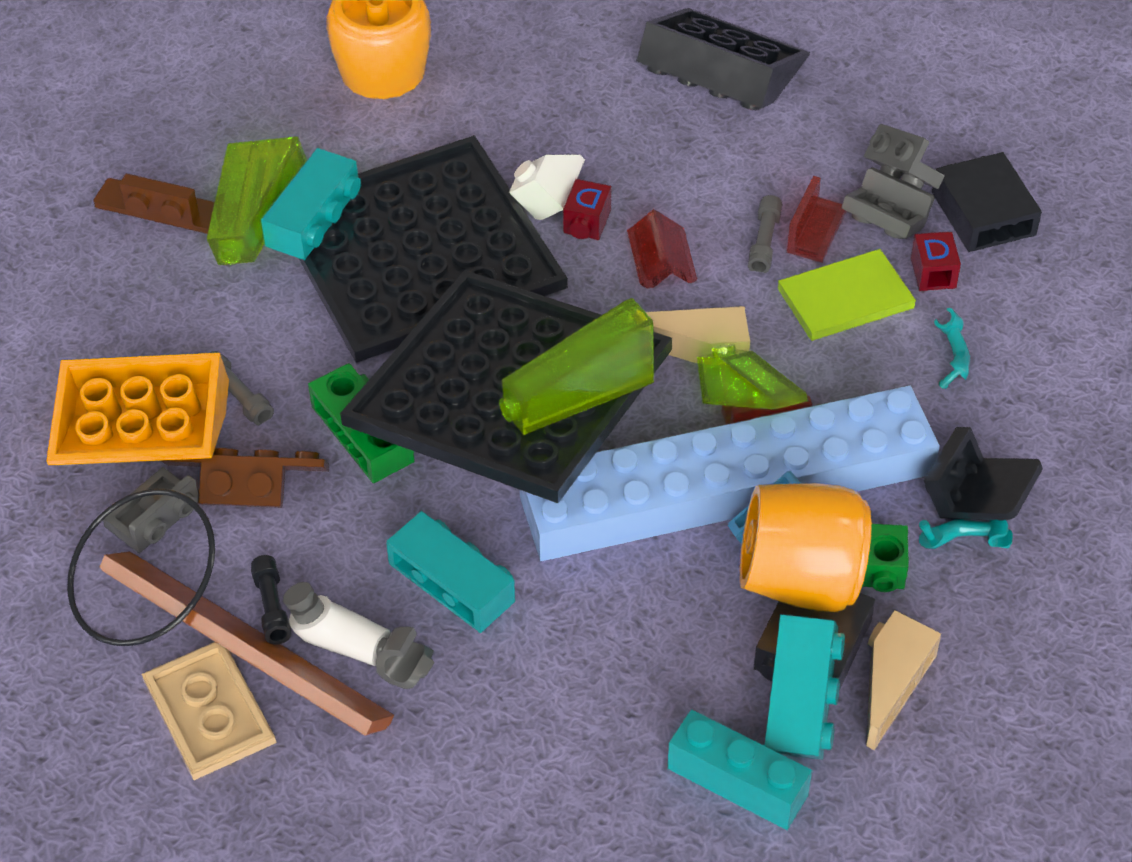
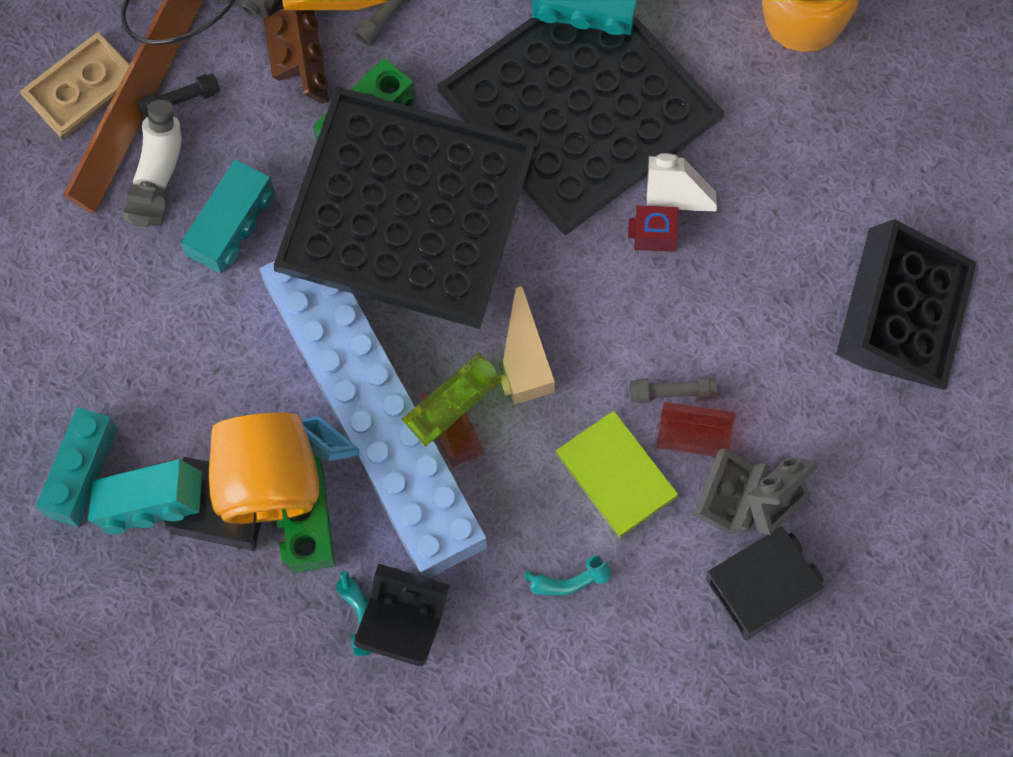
camera: 80 degrees right, 20 degrees up
(583, 370) = (394, 252): clear neon green slope -> none
(660, 250) = (626, 305): clear red panel -> none
(897, 664) = (195, 571): tan slope -> none
(935, 261) = (671, 545): dark red brick -> none

